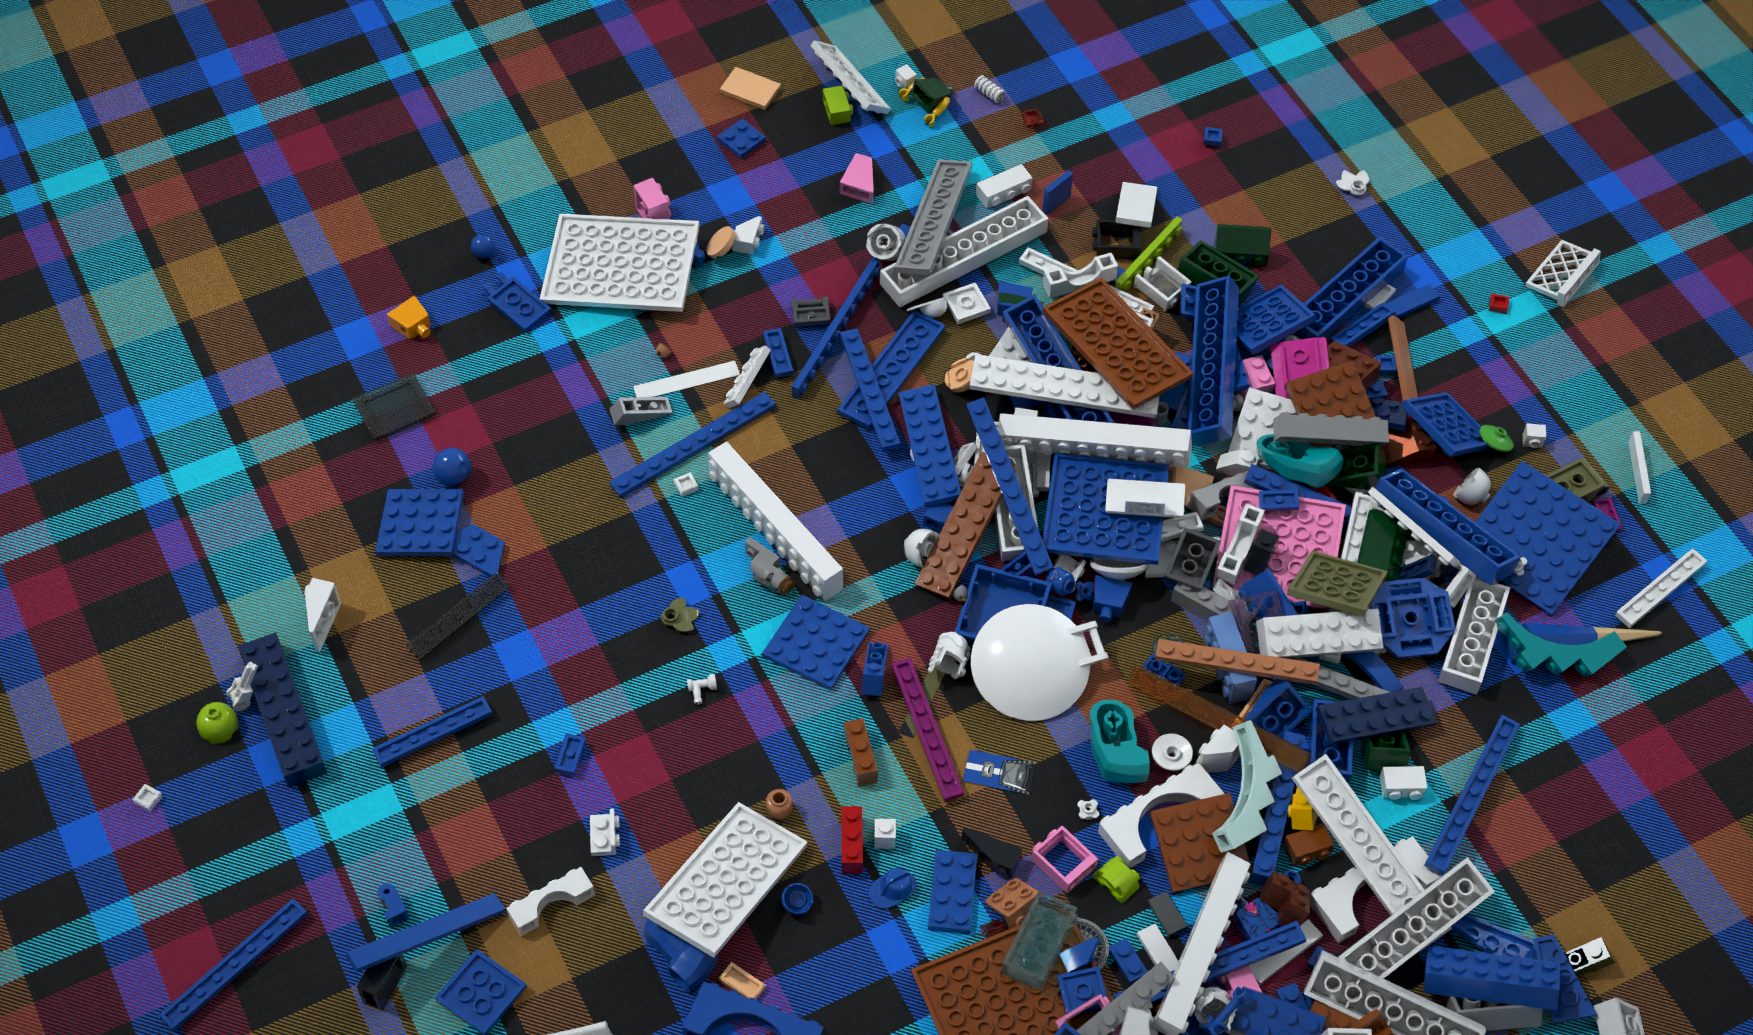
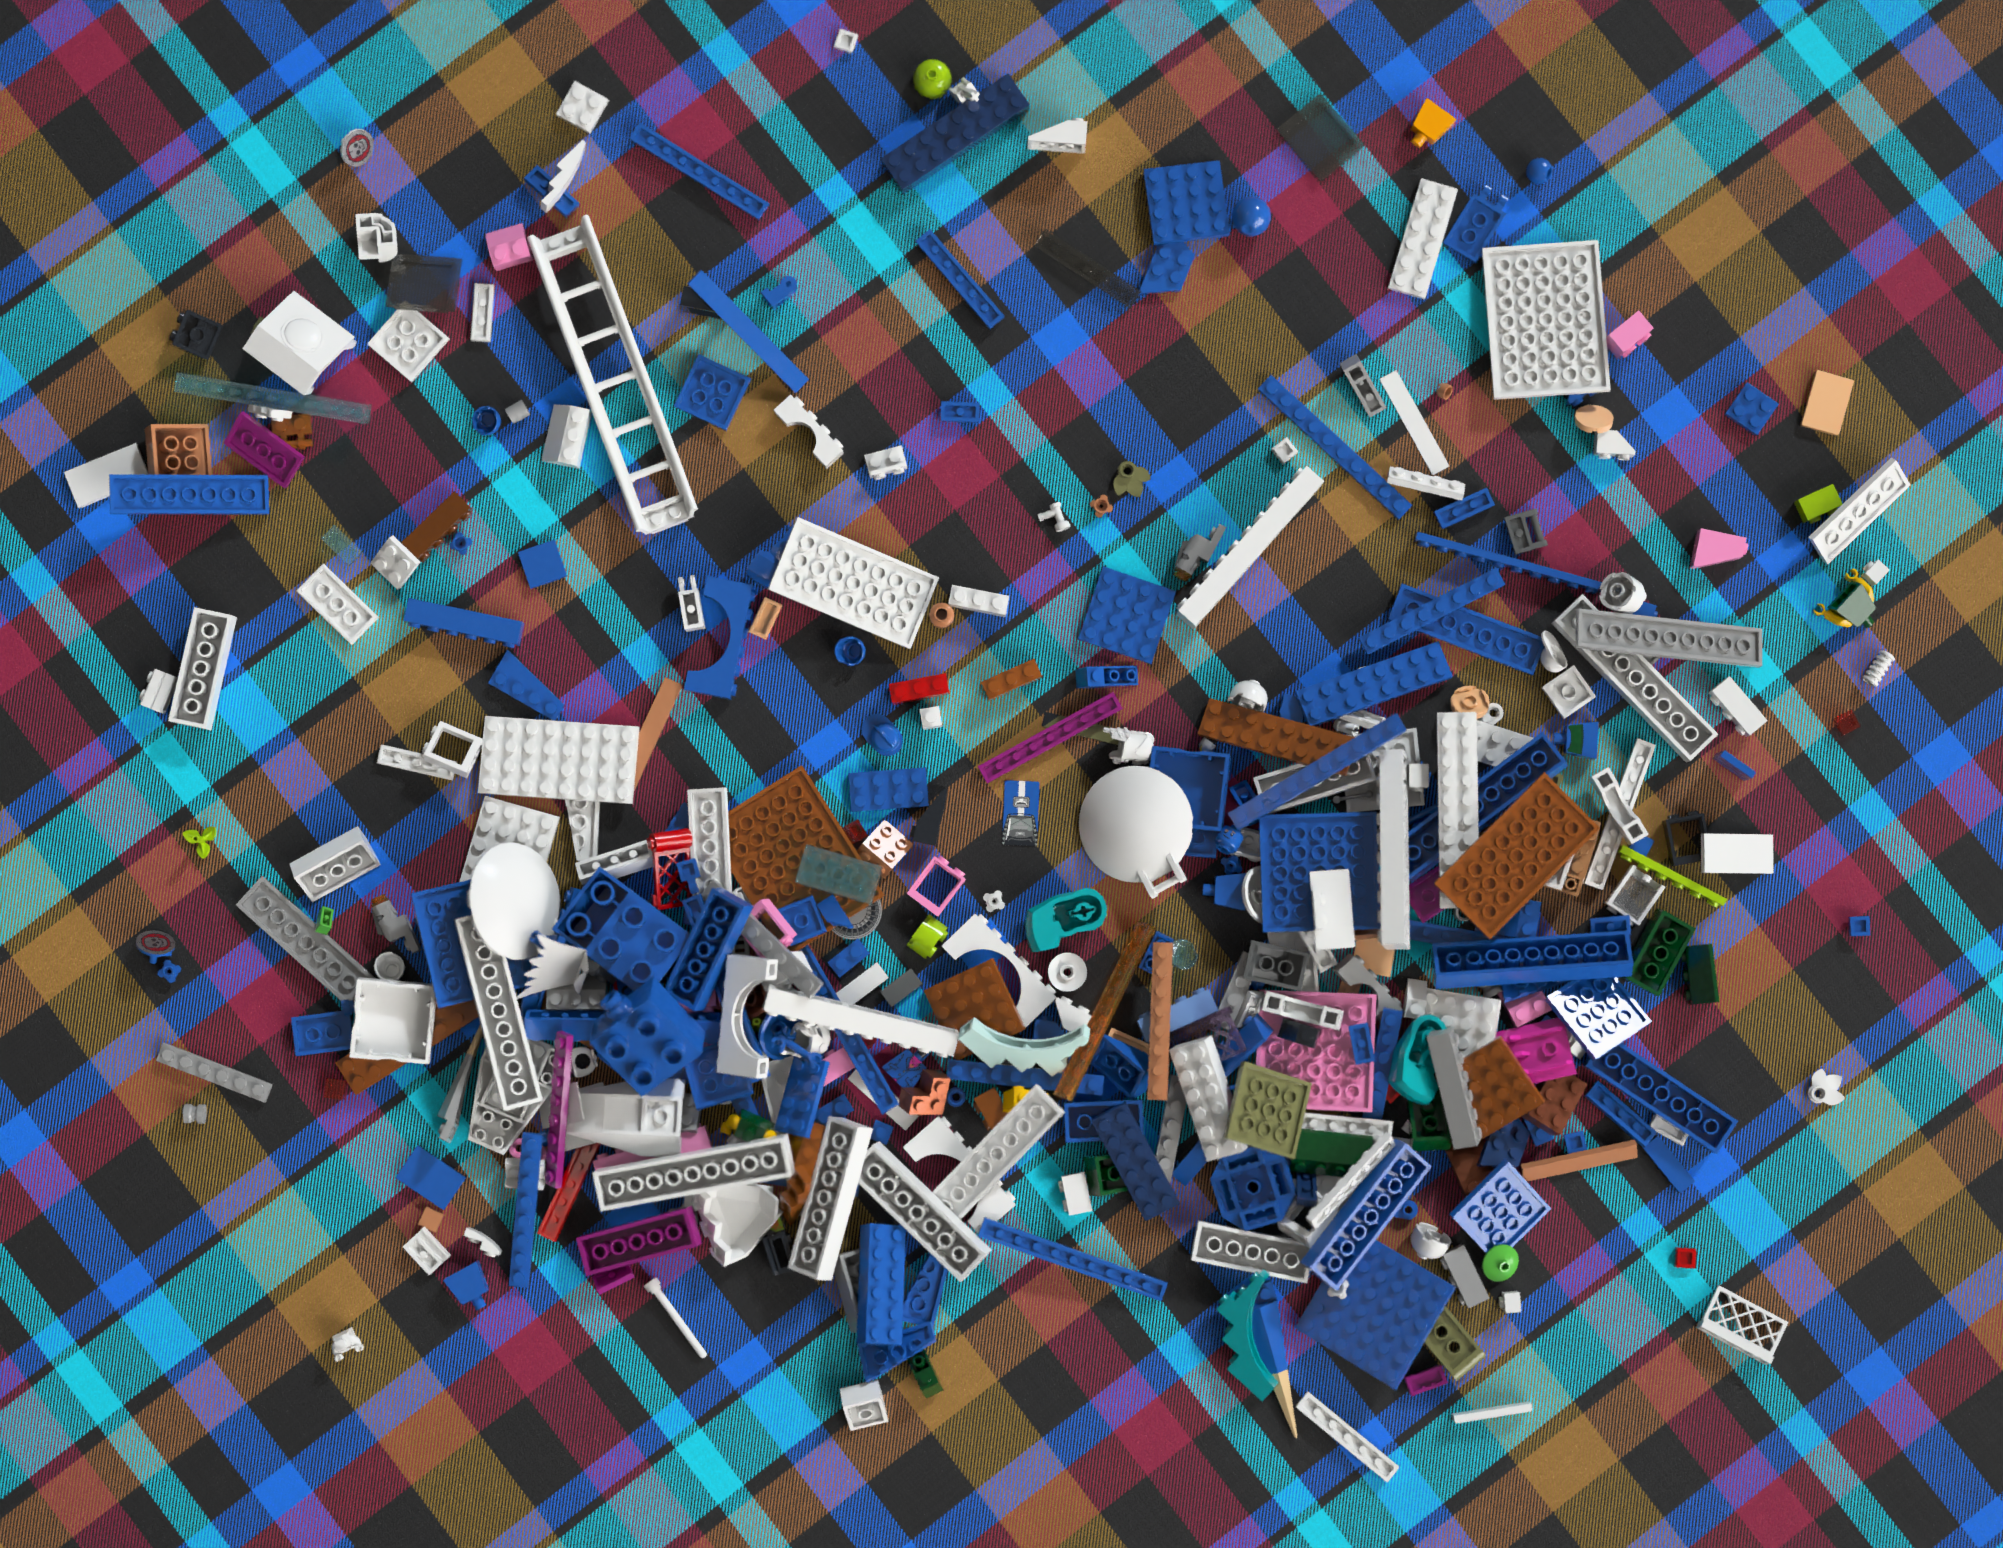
camera: 80 degrees right, 30 degrees up
(516, 345) = (1422, 238): none -> white plate
(700, 640) = (1106, 506): none -> nougat plate
(771, 767) = (978, 601): none -> white brick
(1231, 779) = (1046, 1028): none -> blue slope
(1502, 466) = (1464, 1276): none -> light grey brick

